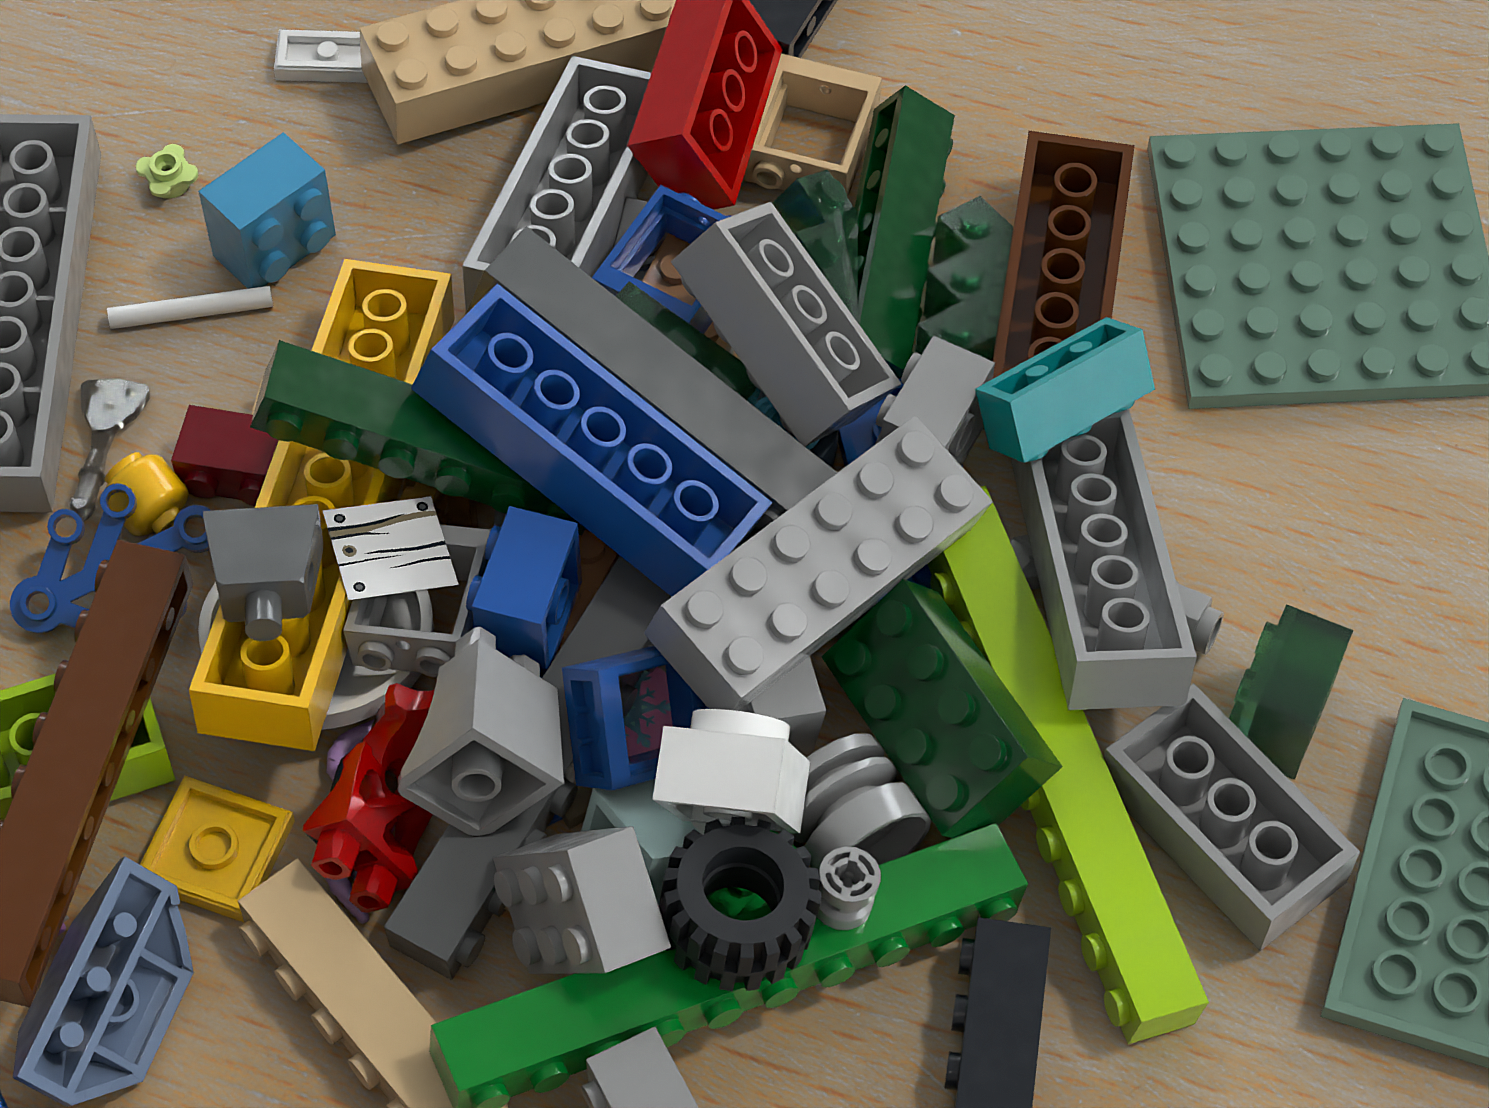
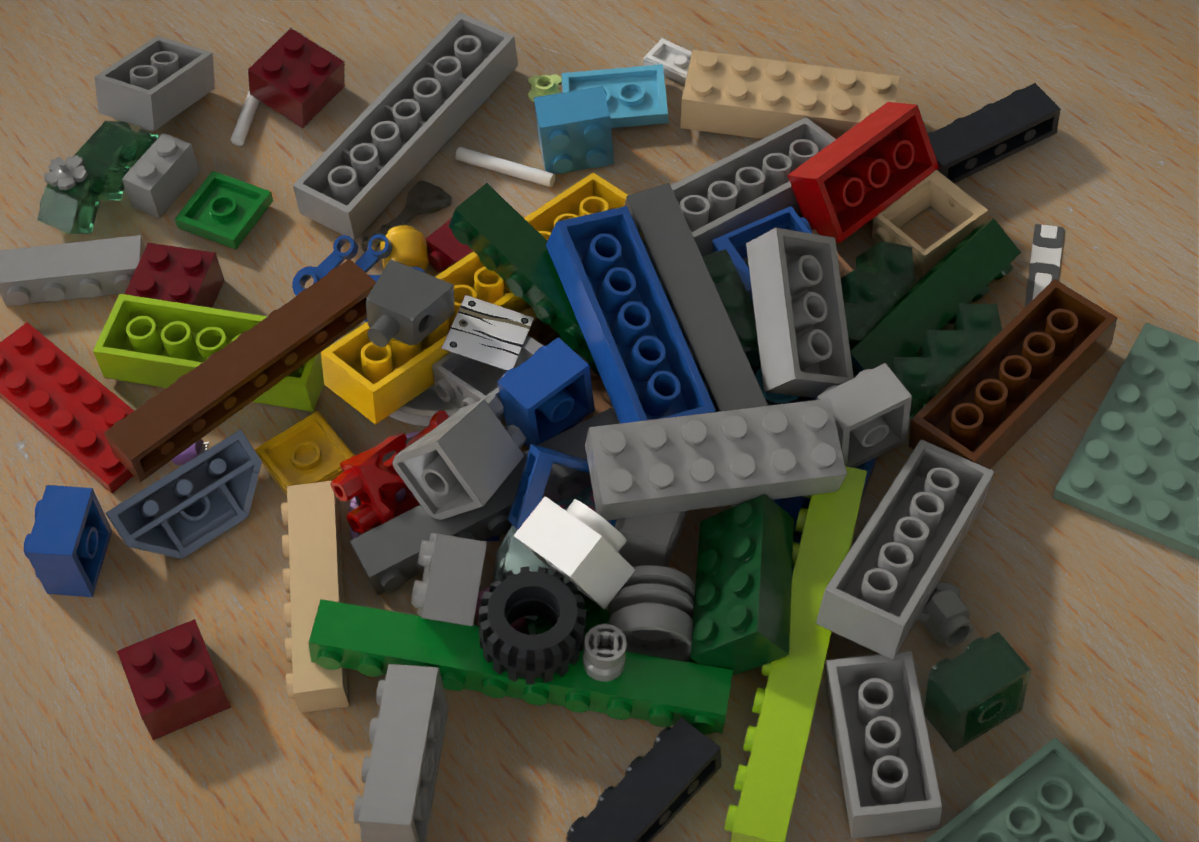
camera: 40 degrees right, 5 degrees down
(300, 107) = (632, 93): none -> medium azure plate
(982, 130) = (1044, 259): none -> sticker
(1065, 389) = (948, 435): teal brick -> none

